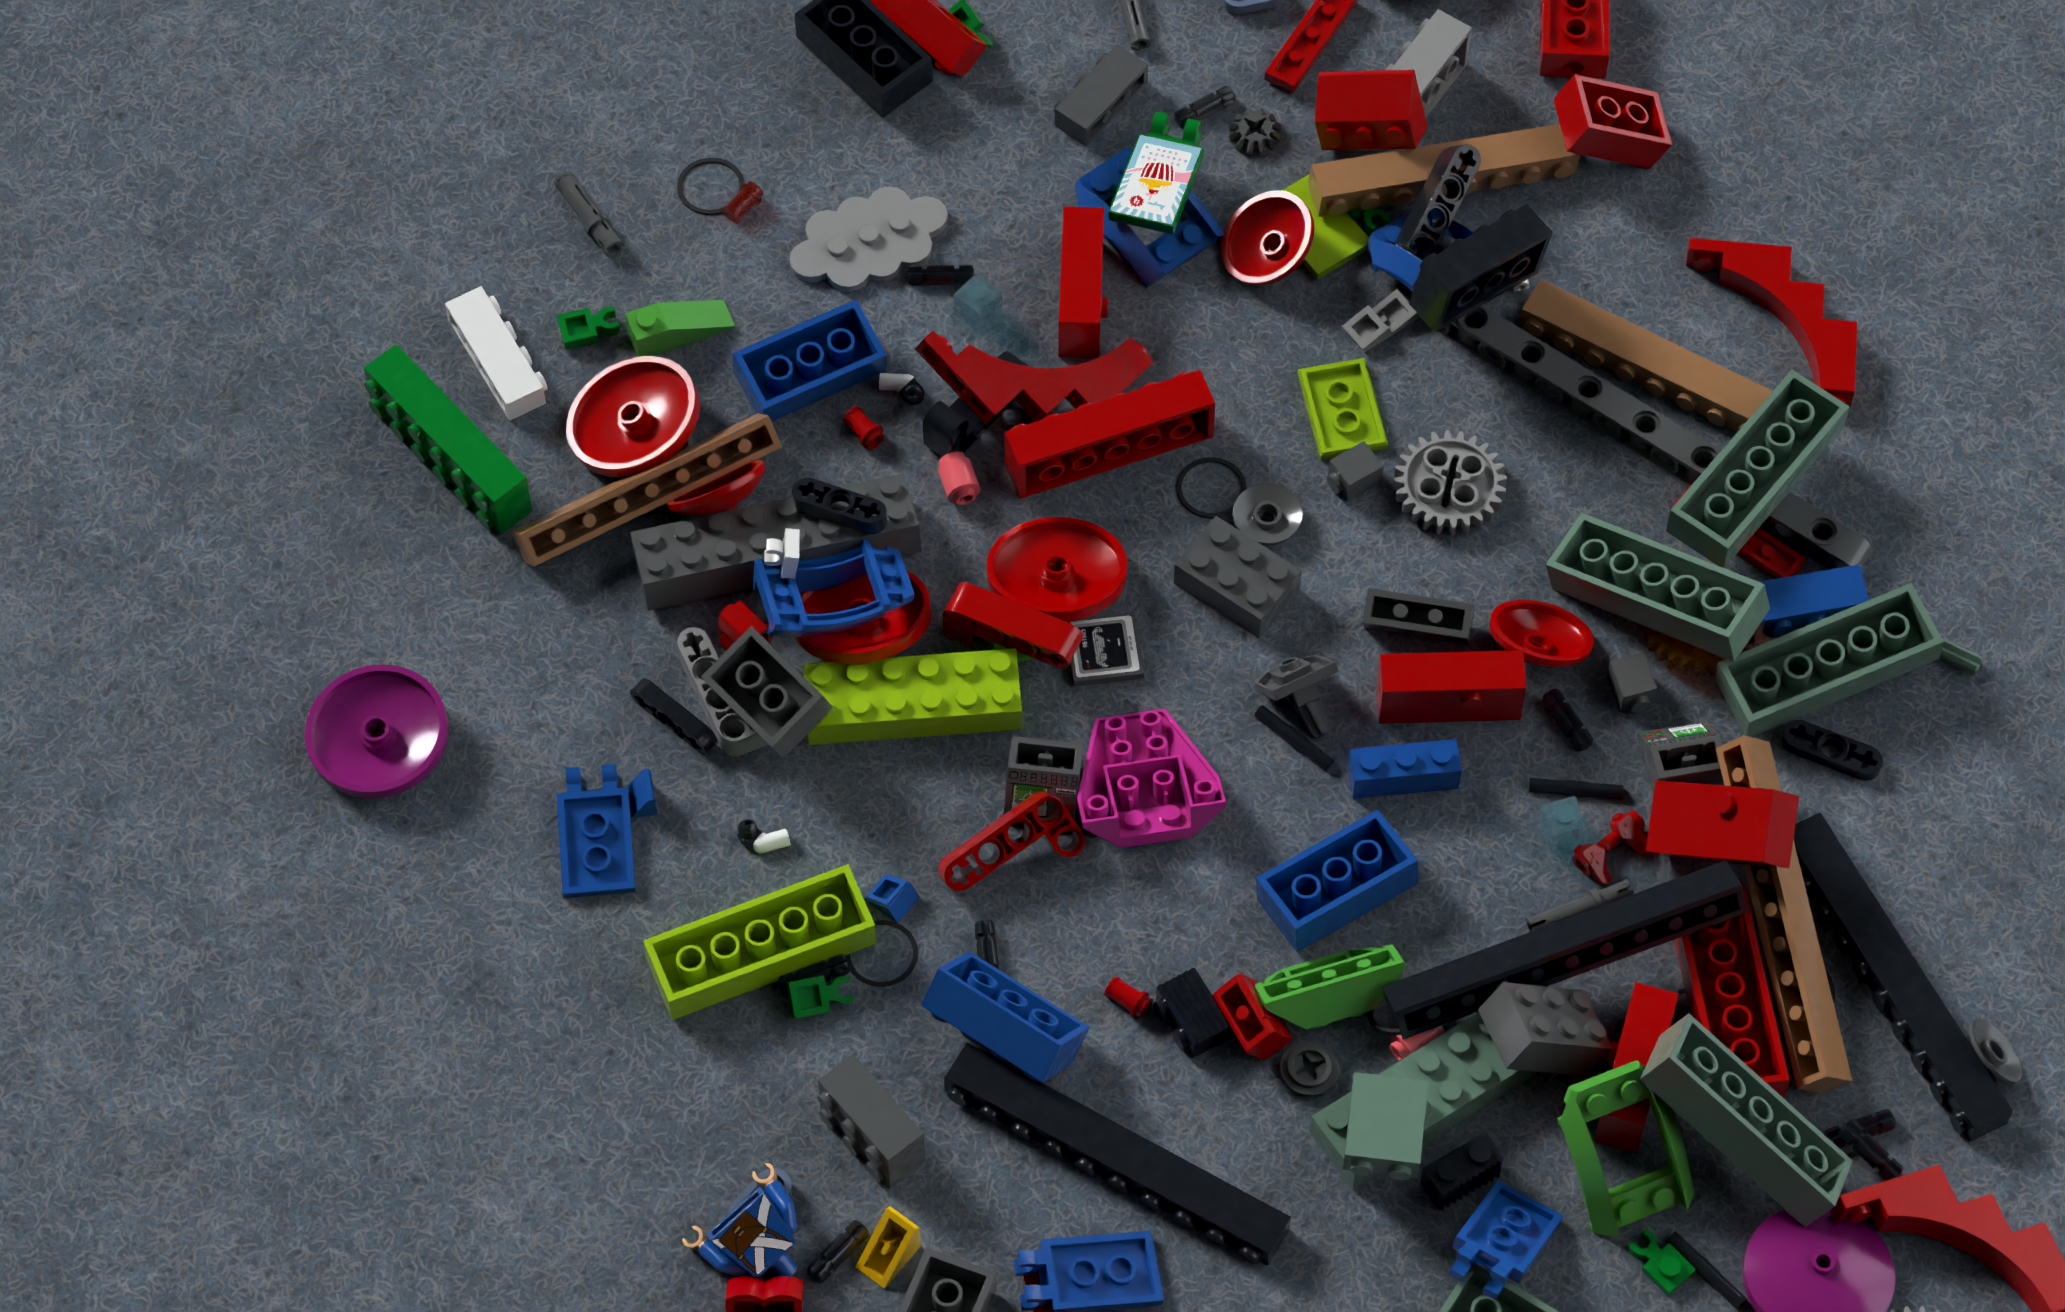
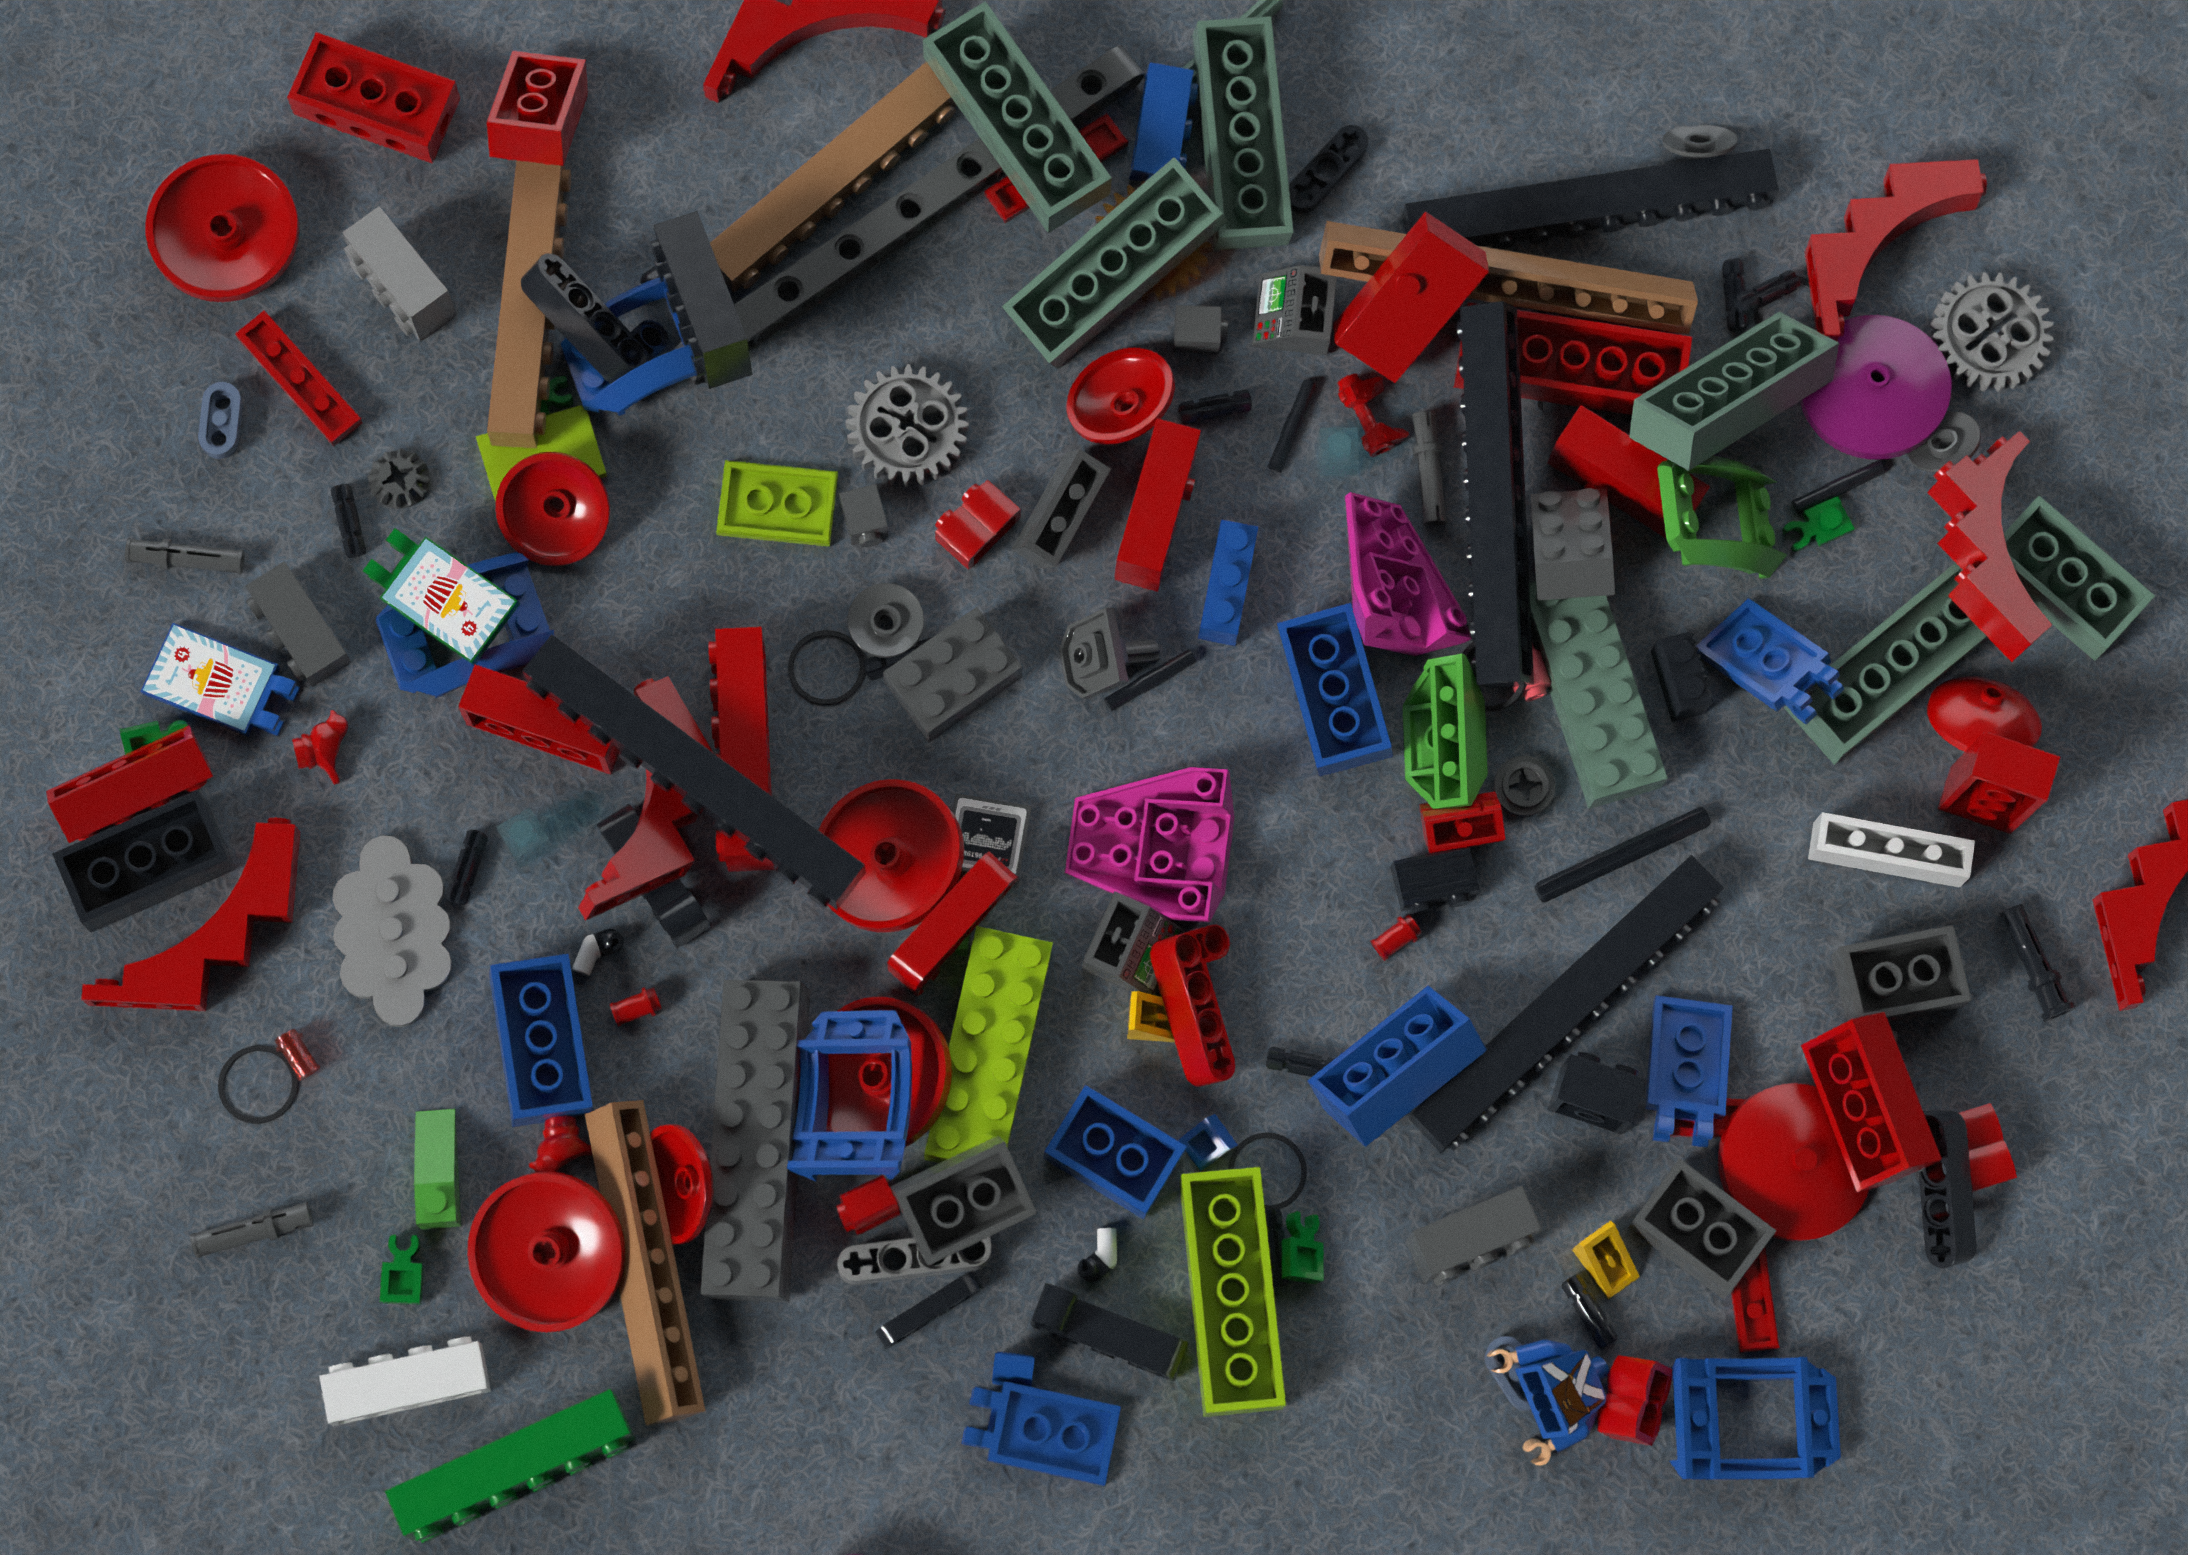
camera: 80 degrees left, 15 degrees up
(694, 852) = (1108, 1332): none -> black beam
(725, 404) = (560, 1145): none -> red animal
(784, 553) = (802, 1131): white tile -> none
(849, 517) = (743, 1087): black beam -> none
(854, 815) = (1114, 1152): none -> blue brick
(868, 136) = (181, 974): none -> red arch
(958, 478) = (736, 924): coral brick -> none
(981, 808) = (1148, 1018): none -> yellow slope
(1004, 142) = (322, 745): none -> red animal
(1033, 58) = (217, 682): none -> tile
(1037, 1191) = (1597, 1092): none -> black brick
(1064, 384) = (693, 772): none -> black brick
(1276, 1171) = (1622, 854): none -> black axle
(1369, 110) = (439, 349): red slope -> none
(1381, 560) = (977, 523): none -> red brick
(1384, 320) = (684, 428): light grey slope -> none
(1385, 1126) = (1641, 730): sand green brick -> none
(1456, 893) = (1395, 583): none -> dark pink wedge

